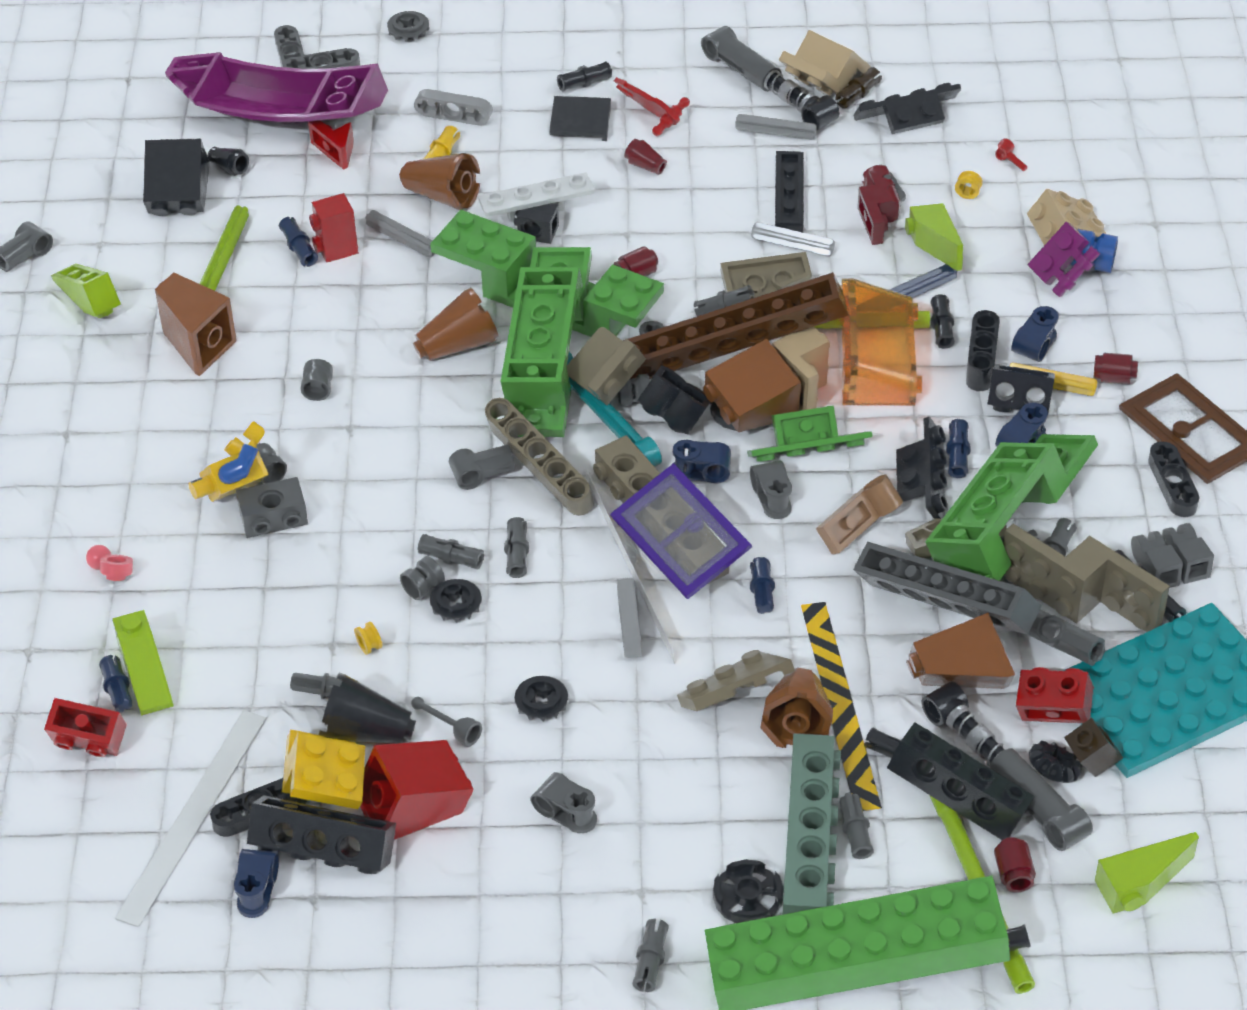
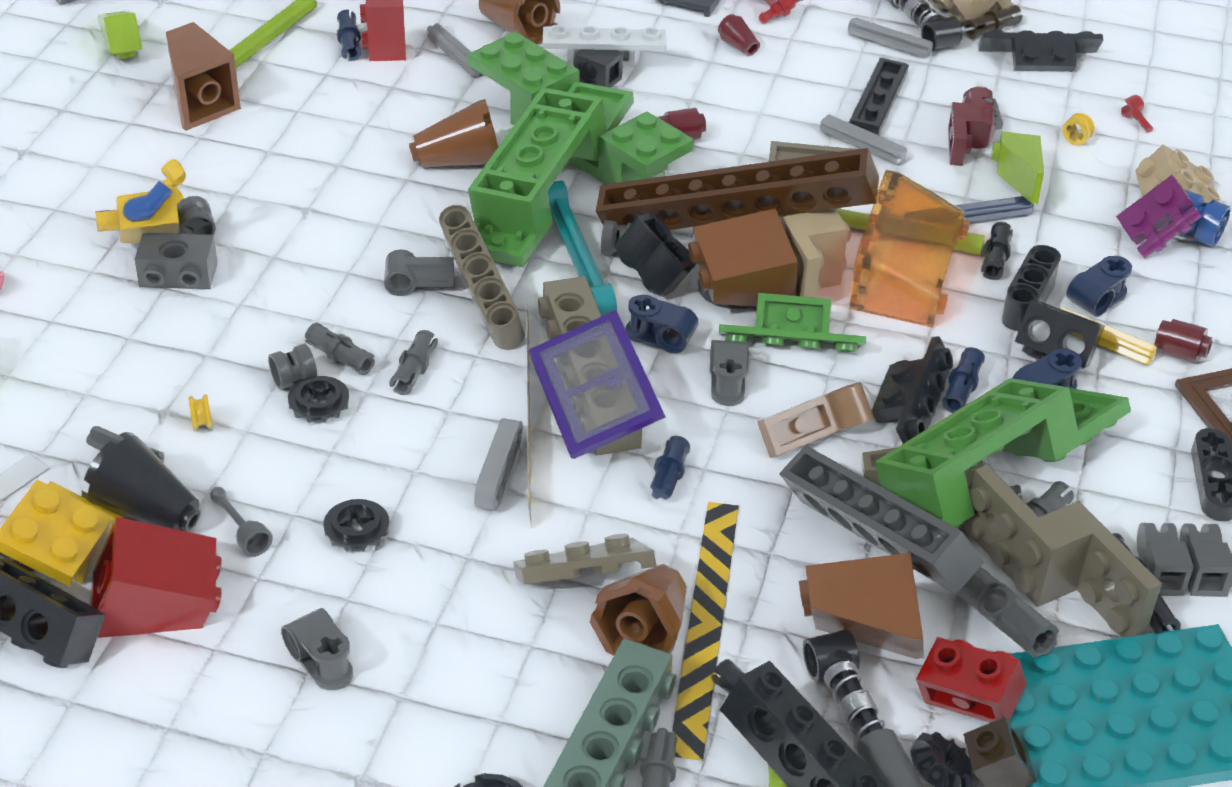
camera: 15 degrees right, 5 degrees down
(316, 379) = (293, 155): dark grey wheel -> none
(605, 364) = (592, 201): dark tan bracket -> none

